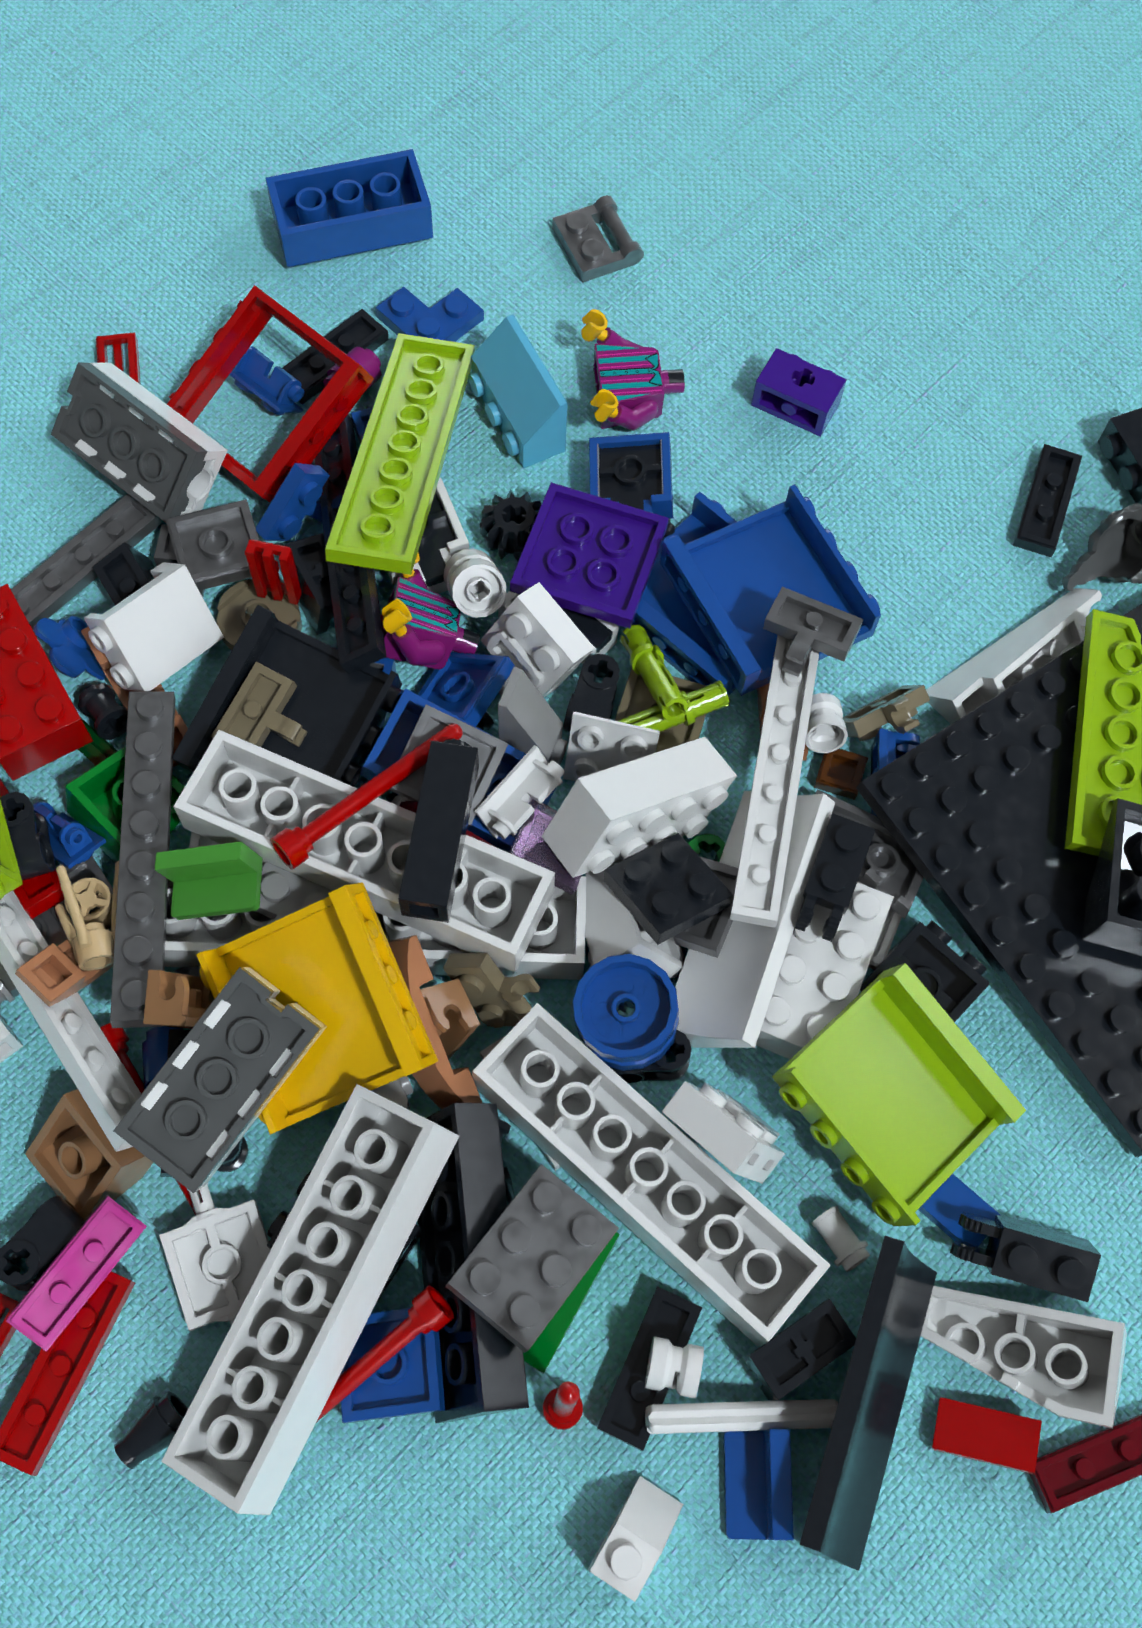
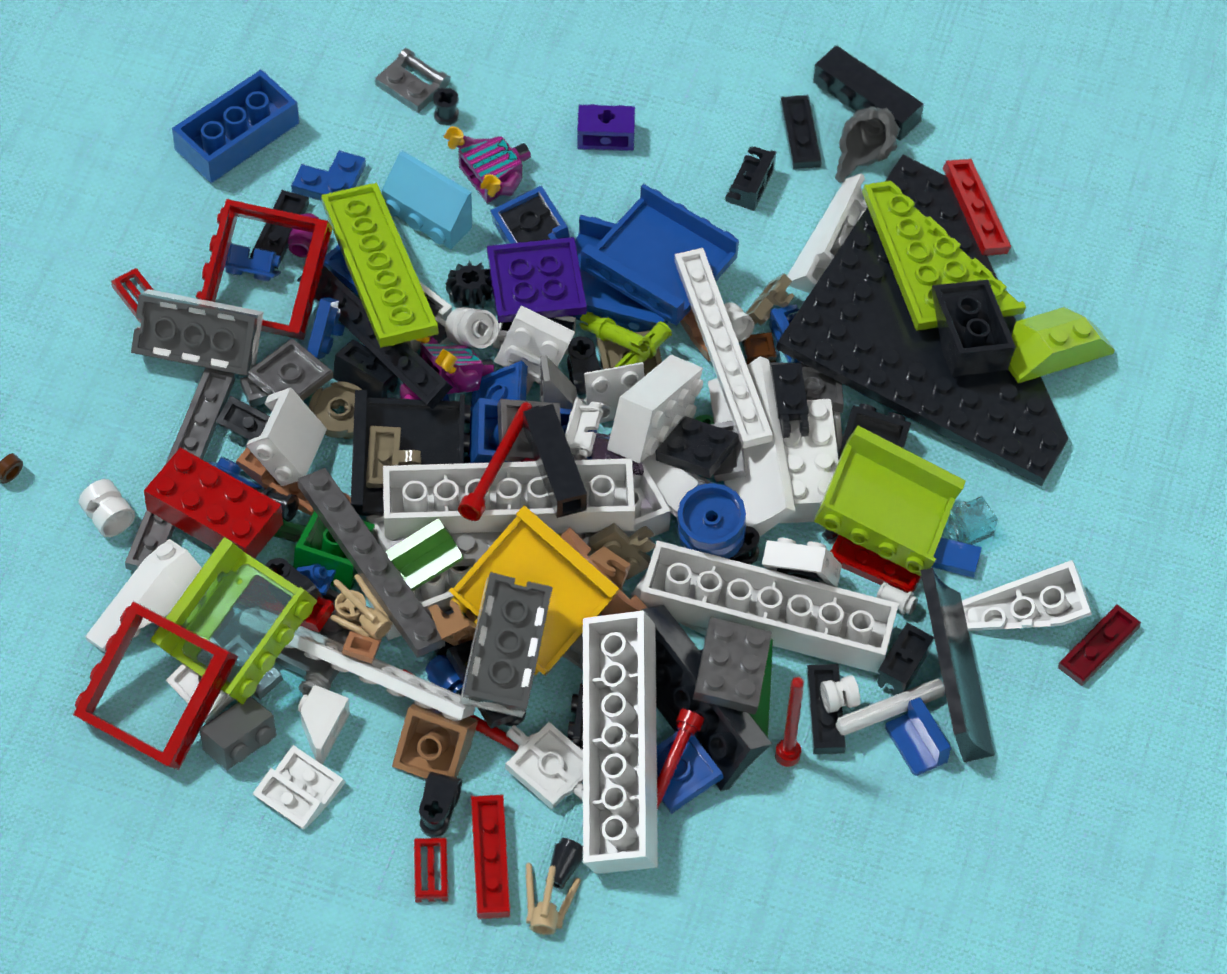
camera: 25 degrees left, 10 degrees down
(76, 1273) = (471, 799): dark pink tile -> none
(78, 1499) = (545, 917): none -> tan plant
(265, 570) = (346, 383): red tile -> none
(616, 280) = (446, 102): none -> black bush
(636, 1539) = (865, 796): white slope -> none
(810, 627) = (702, 262): flat silver plate -> none
(826, 1170) = (872, 566): none -> red tile
(952, 536) = (752, 178): none -> black hinge
(987, 1435) = (1029, 659): red tile -> none
(1006, 1170) = (972, 521): none -> clear light blue brick
(1031, 1255) = (1007, 555): black hinge -> none

